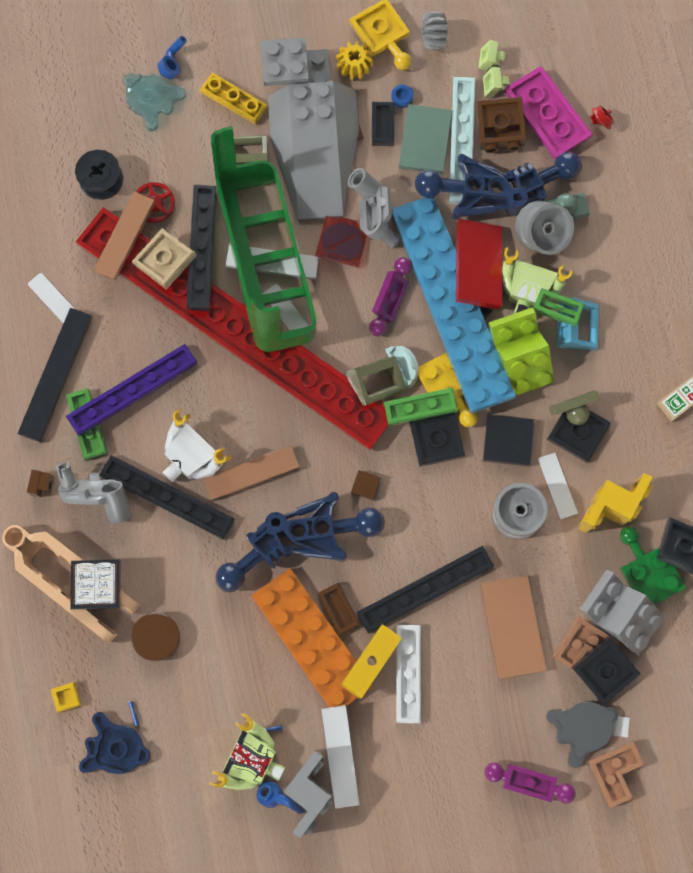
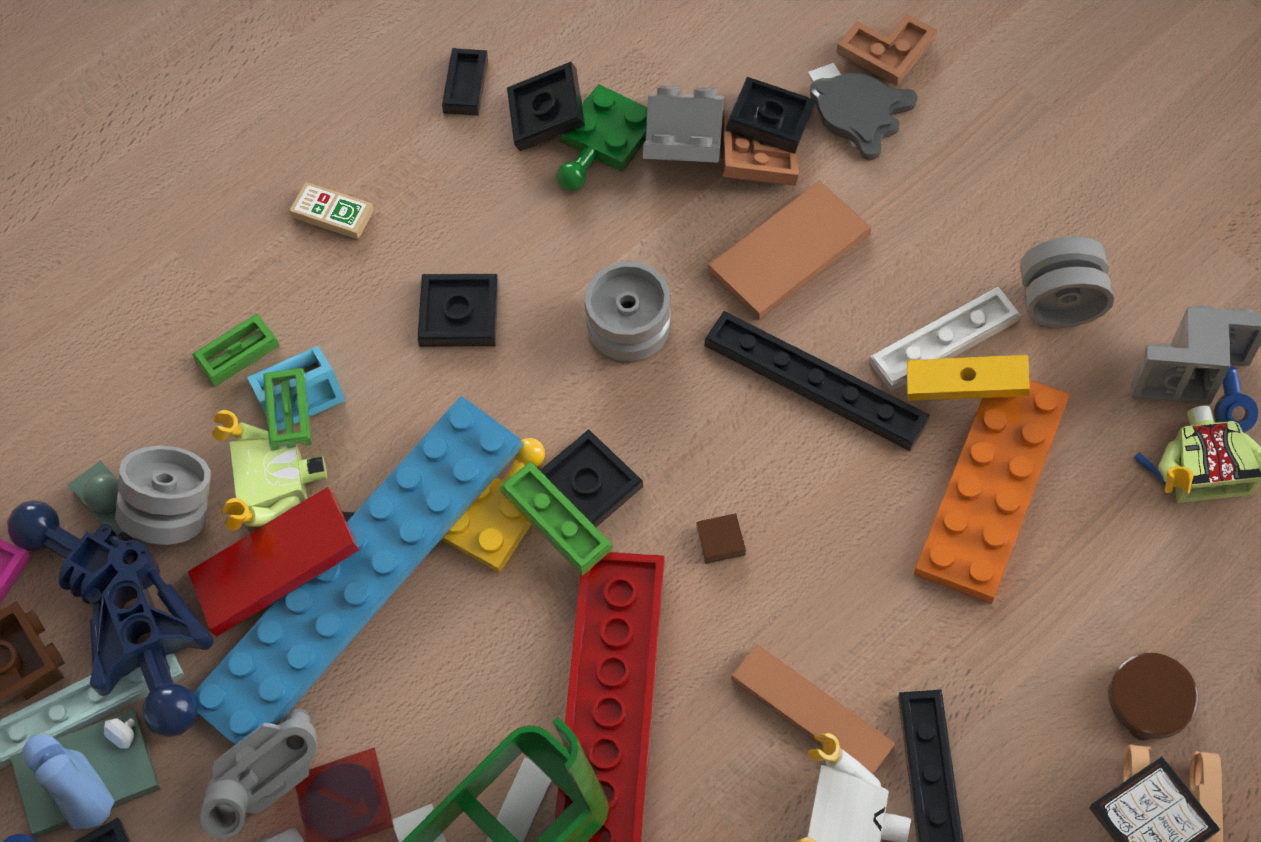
camera: 120 degrees left, 15 degrees down
(269, 548) = (907, 609): dark blue piece -> none
(338, 609) = (923, 473): reddish brown tile -> none
(340, 756) = (1114, 355): white tile -> none
(390, 296) = (399, 666): magenta plate -> none
(390, 365) = (542, 622): olive tile -> none
(393, 753) = (1066, 282): none -> light grey wheel
(406, 362) = (497, 587): light aqua plate -> none
(417, 123) = (69, 781): none -> light blue piece
(433, 158) = (119, 732): none -> white rock
(508, 440) = (529, 388): black tile -> none
(522, 351) = (380, 425): lime bracket -> none
(530, 783) = (974, 129): magenta plate -> none
(557, 486) = (554, 299): white sticker -> none
(576, 409) = (427, 318): olive tile -> none
(611, 309) = (238, 354): none -> bright green tile
(616, 503) = (534, 190): yellow bracket -> none

